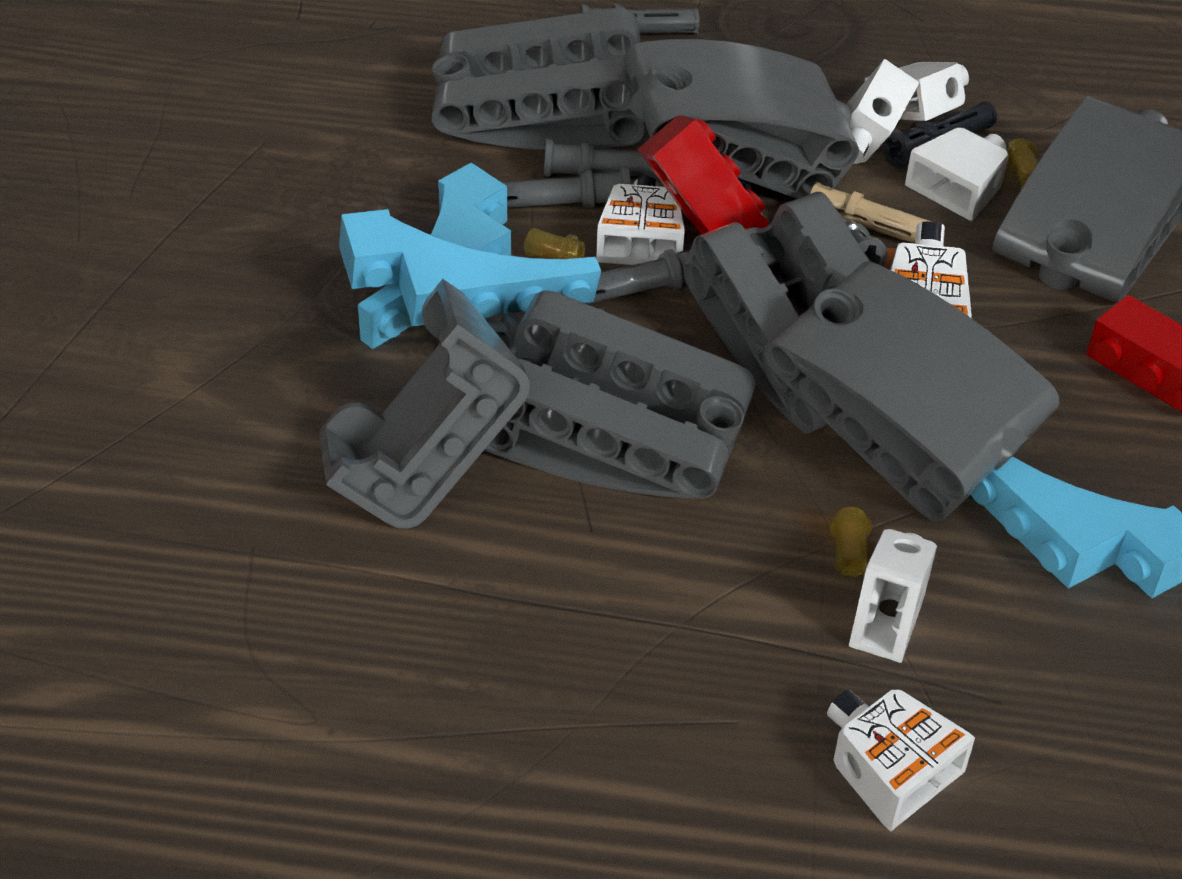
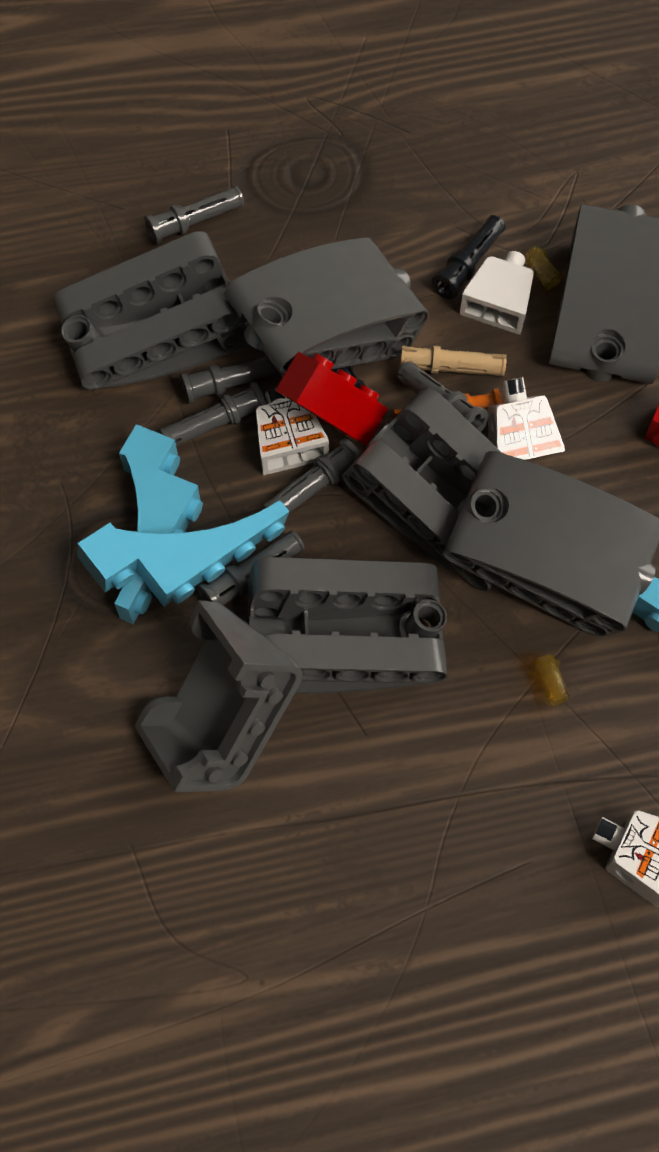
camera: 20 degrees left, 20 degrees up
(552, 246) = (230, 479): clear yellow pin -> none
(866, 125) = (424, 258): white torso -> none
(899, 573) = (602, 720): white torso -> none
(938, 89) = (441, 224): white torso -> none

